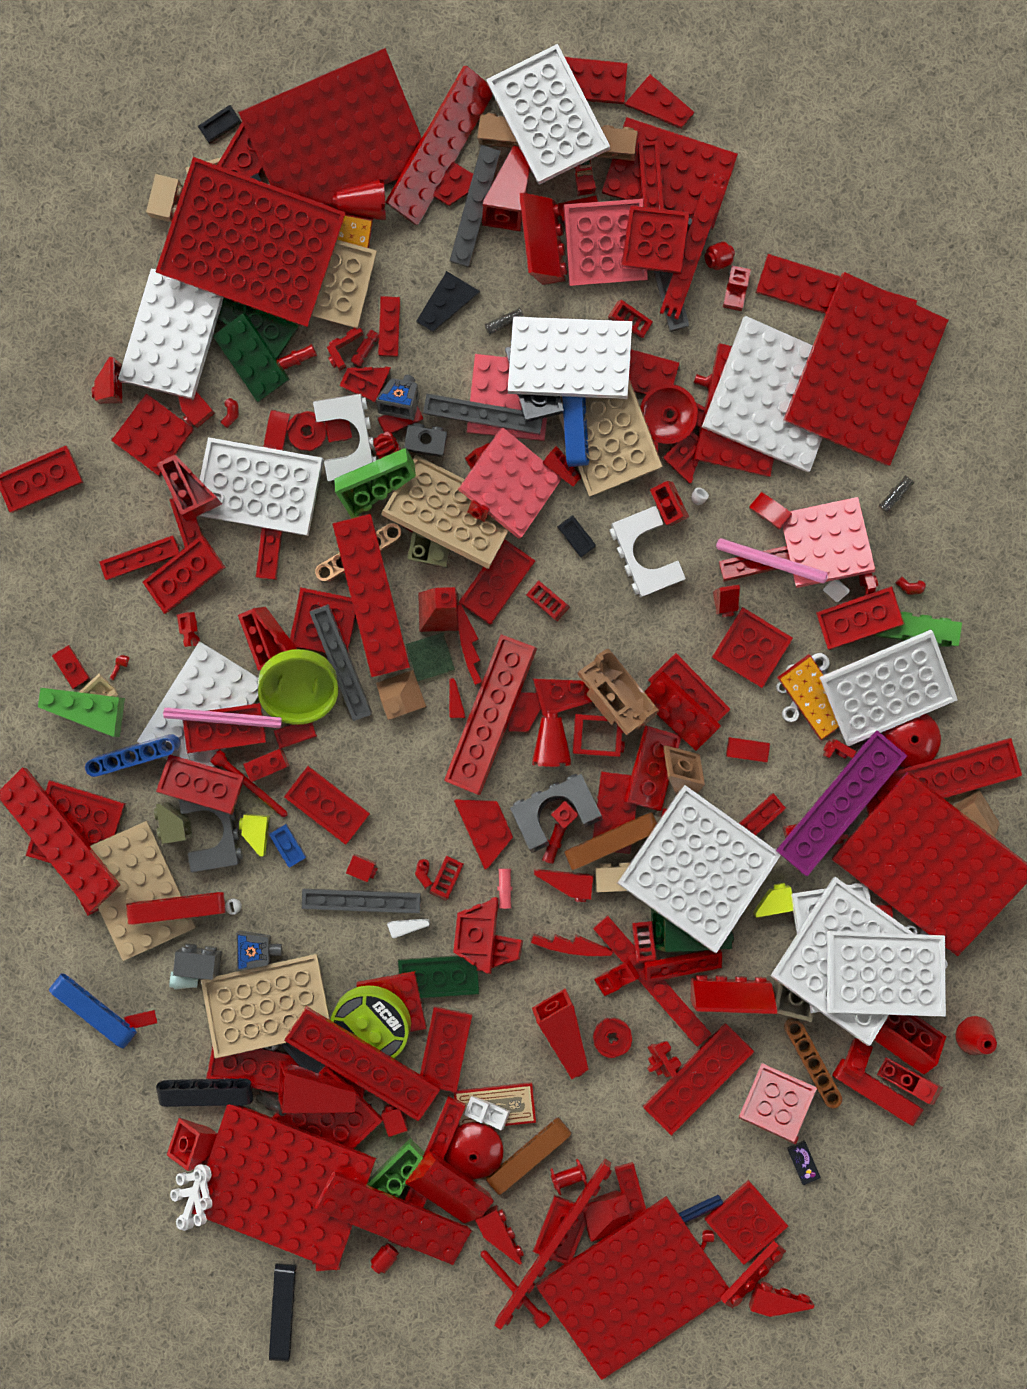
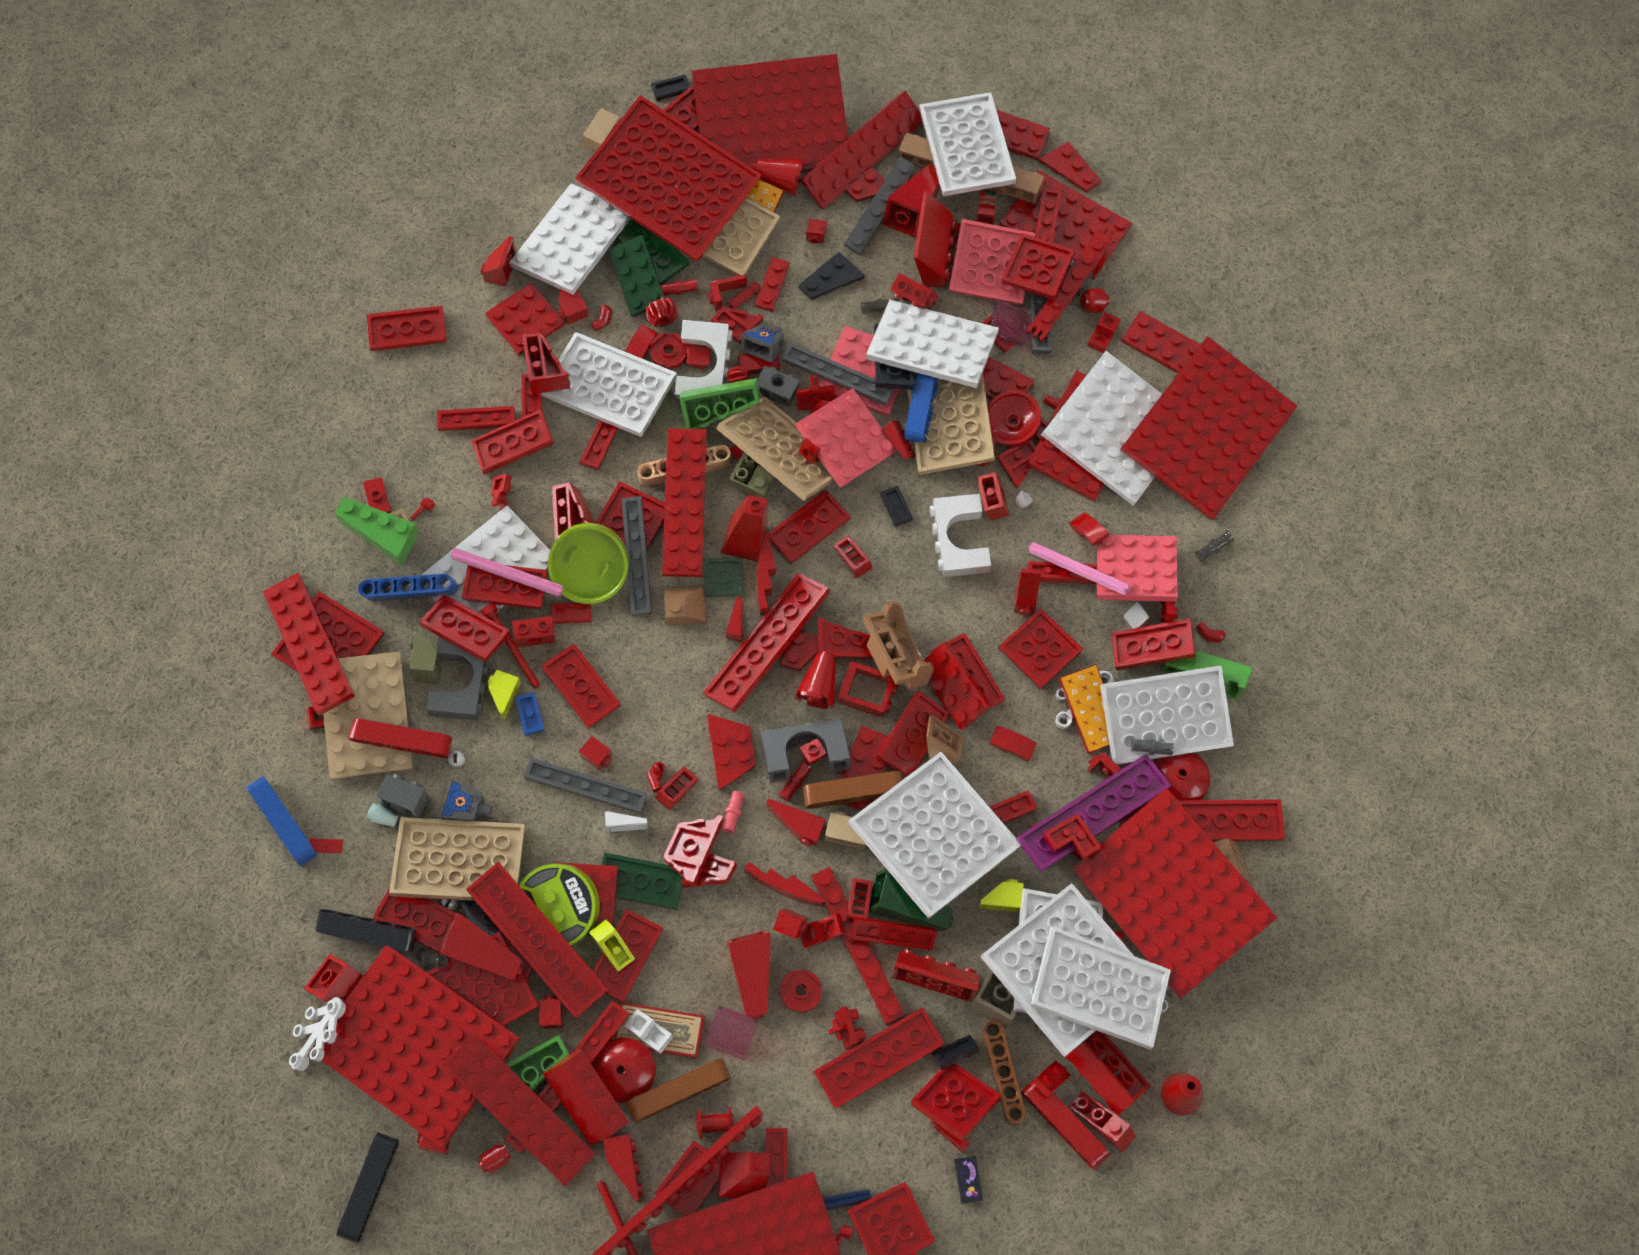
camera: 15 degrees right, 20 degrees down
(288, 392) = (662, 312): none -> red gear
(417, 252) = (816, 231): none -> red bracket
(430, 1047) = (612, 945): none -> neon yellow slope
(466, 441) = (811, 396): none -> red plate
(536, 300) = (911, 289): none -> red brick
(561, 1094) = (731, 1032): none -> clear pink tile
(587, 981) = (791, 923): none -> red brick
(640, 305) = (1011, 322): none -> clear pink tile
(765, 1055) = (955, 1052): none -> black tile
(826, 833) = (1075, 832): none -> red plate
(881, 723) = (1152, 746): none -> dark grey pin

